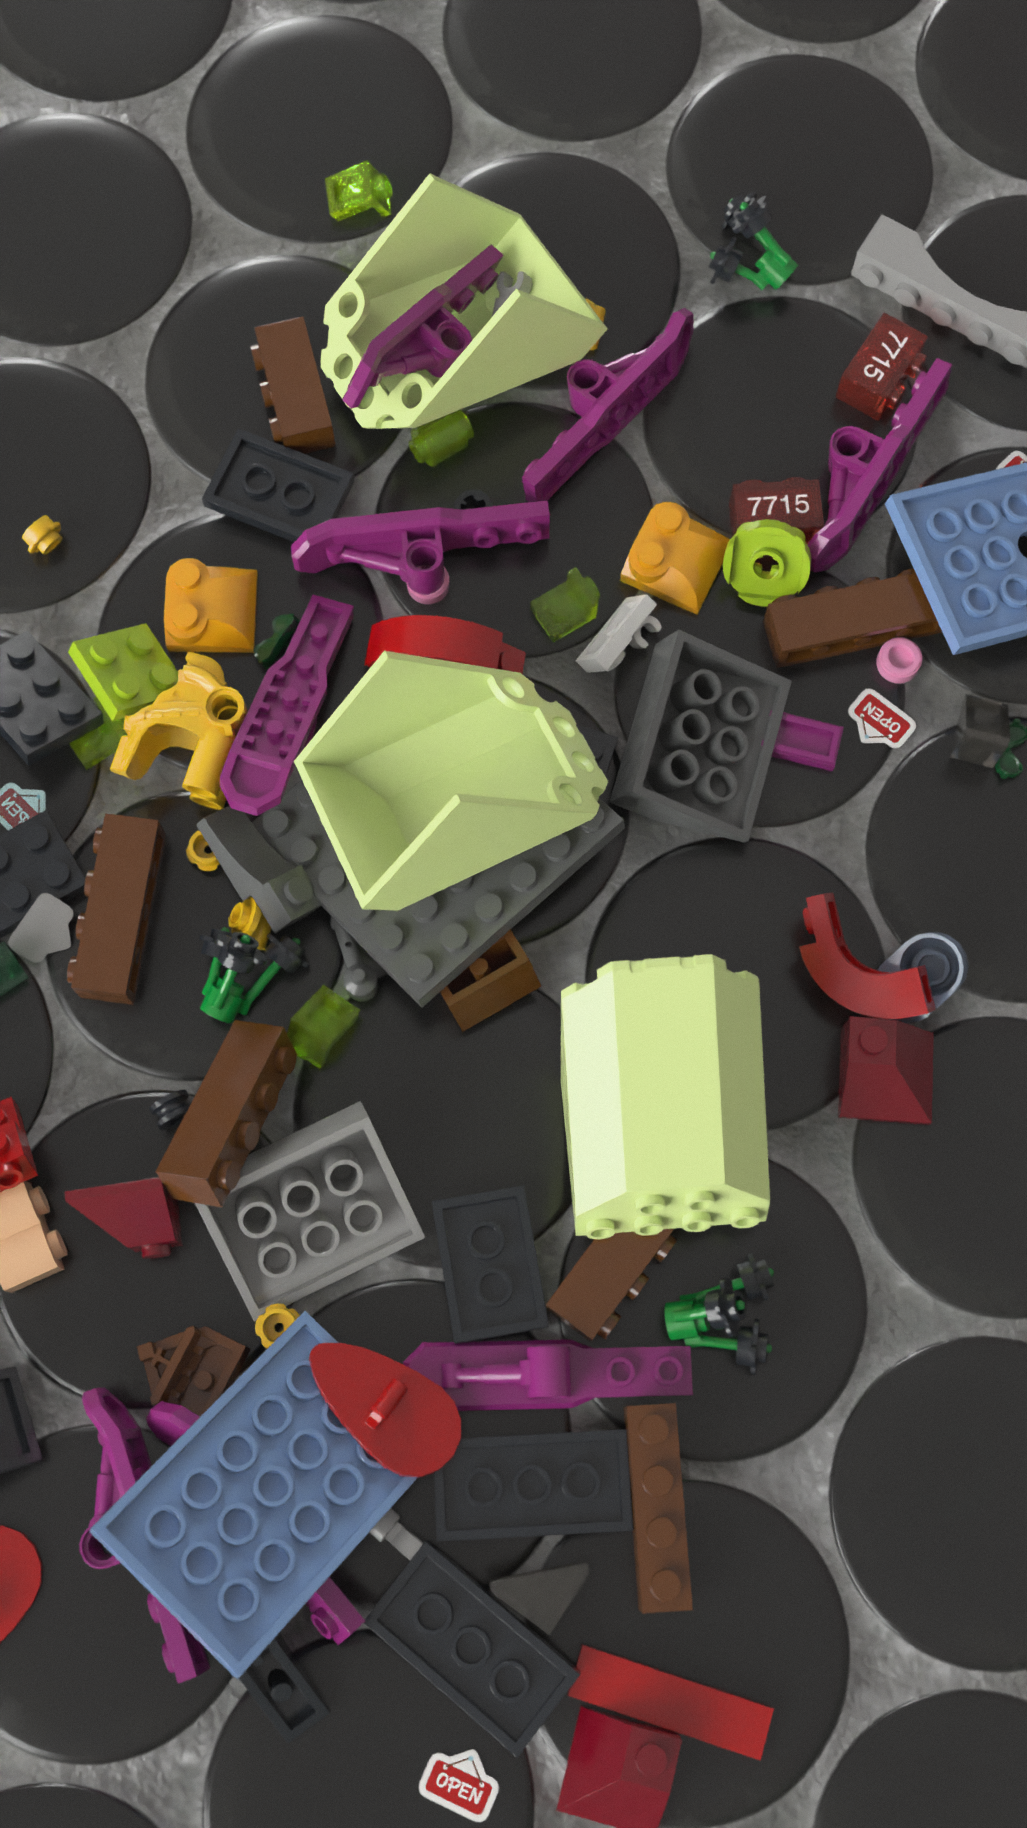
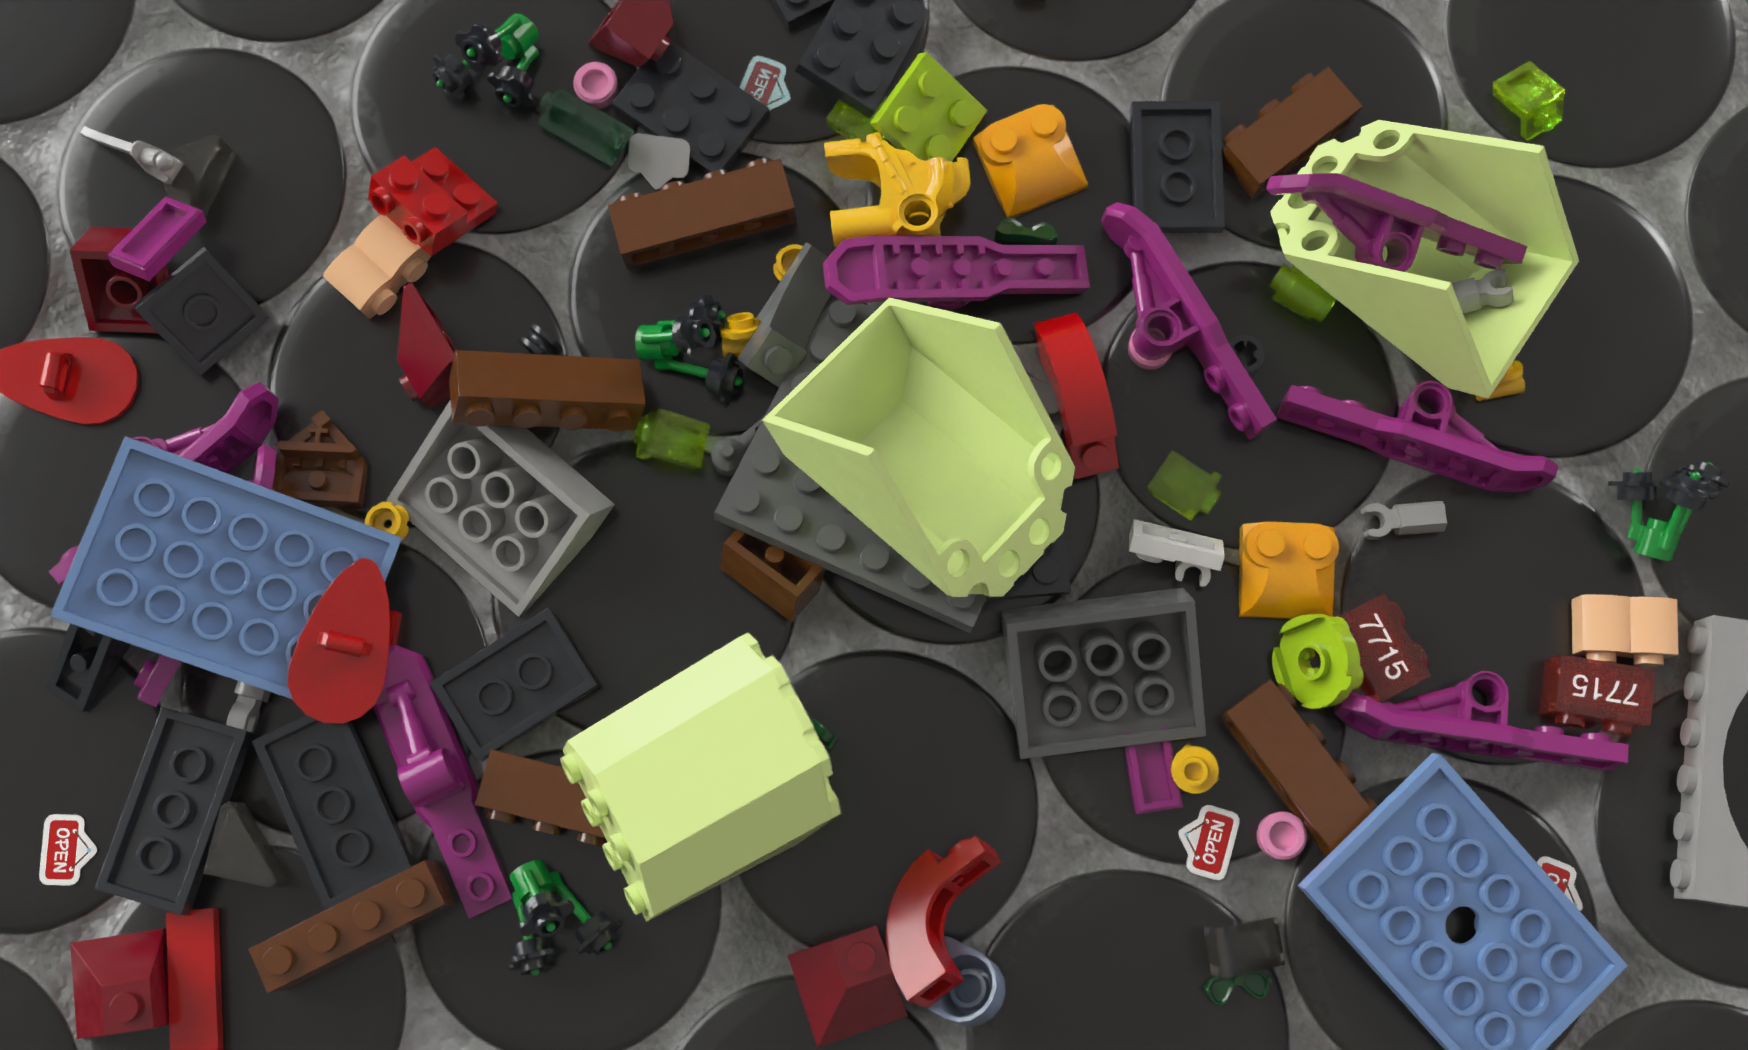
camera: 70 degrees right, 5 degrees up
(673, 445) = (1406, 518): none -> light grey bar
(816, 701) = (1194, 769): none -> yellow plate
(837, 322) = (1625, 628): none -> light nougat brick

